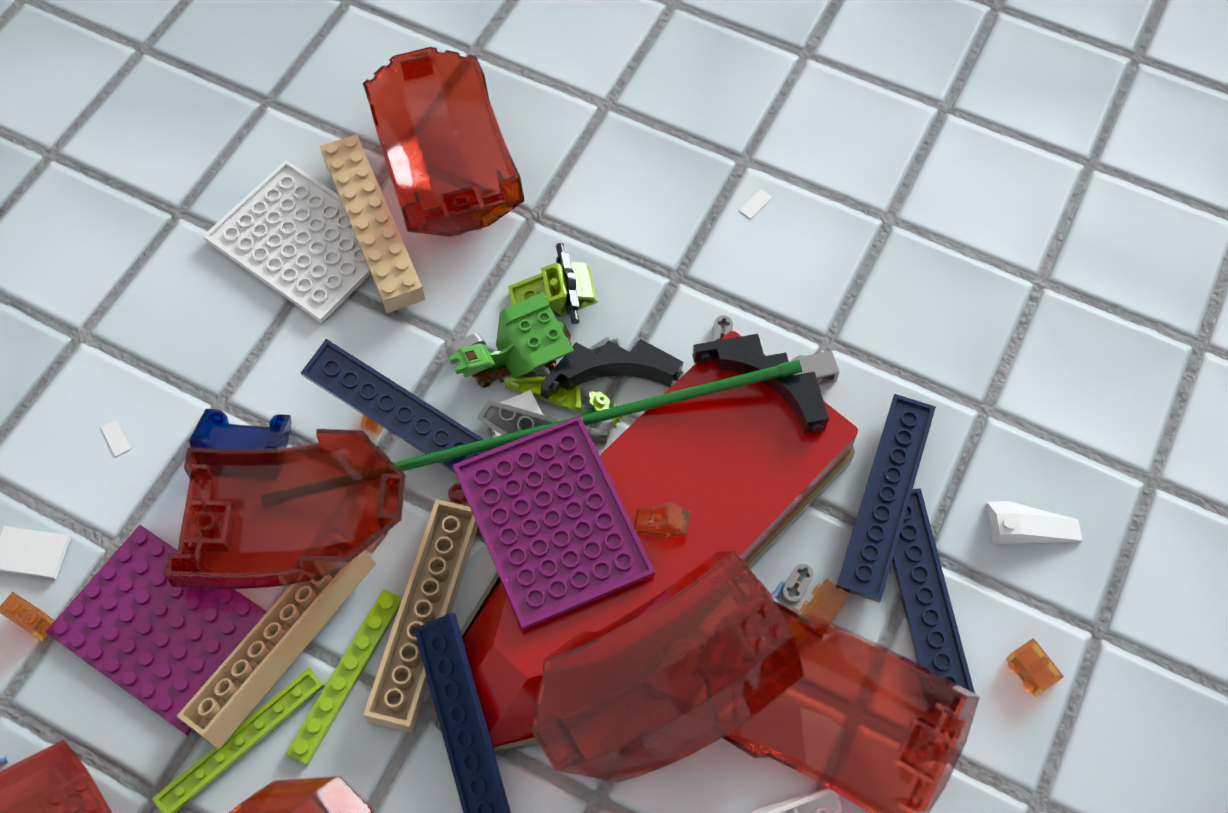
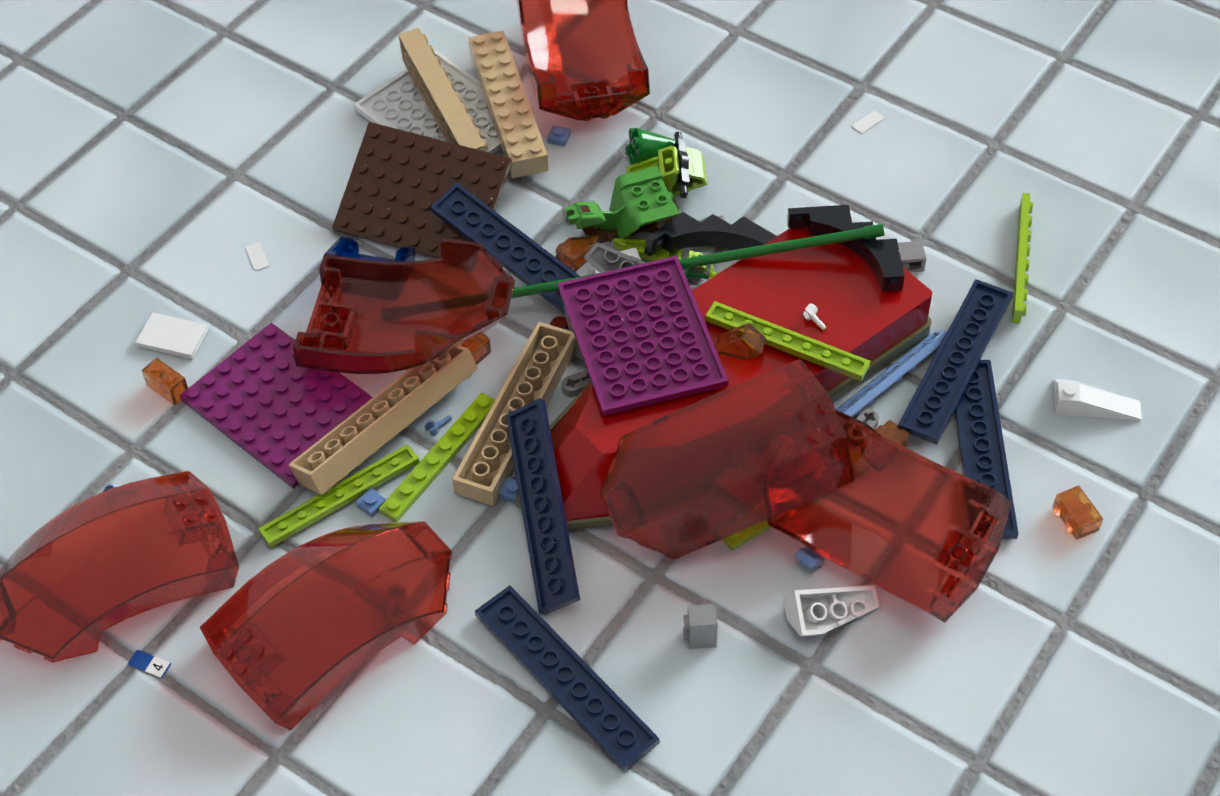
camera: 10 degrees right, 10 degrees down
(267, 335) = (402, 177): none -> reddish brown plate
(276, 745) = (370, 502): none -> medium blue plate
(302, 230) = (438, 91): none -> tan brick
(339, 635) = (435, 425): none -> medium blue hand
(427, 711) = (509, 490): none -> medium blue plate
(431, 252) = (559, 135): none -> medium blue plate
(466, 399) = (574, 249): none -> clear orange slope
(483, 560) = (577, 381): none -> light grey beam
(527, 260) = (645, 145): none -> green cone
(714, 511) = (791, 342): none -> lime plate
(731, 473) = (810, 313): none -> white hand
(762, 764) = (809, 558): none -> medium blue plate
(815, 523) = (892, 374): none -> light blue plate
(936, 362) = (1022, 264): none -> lime plate

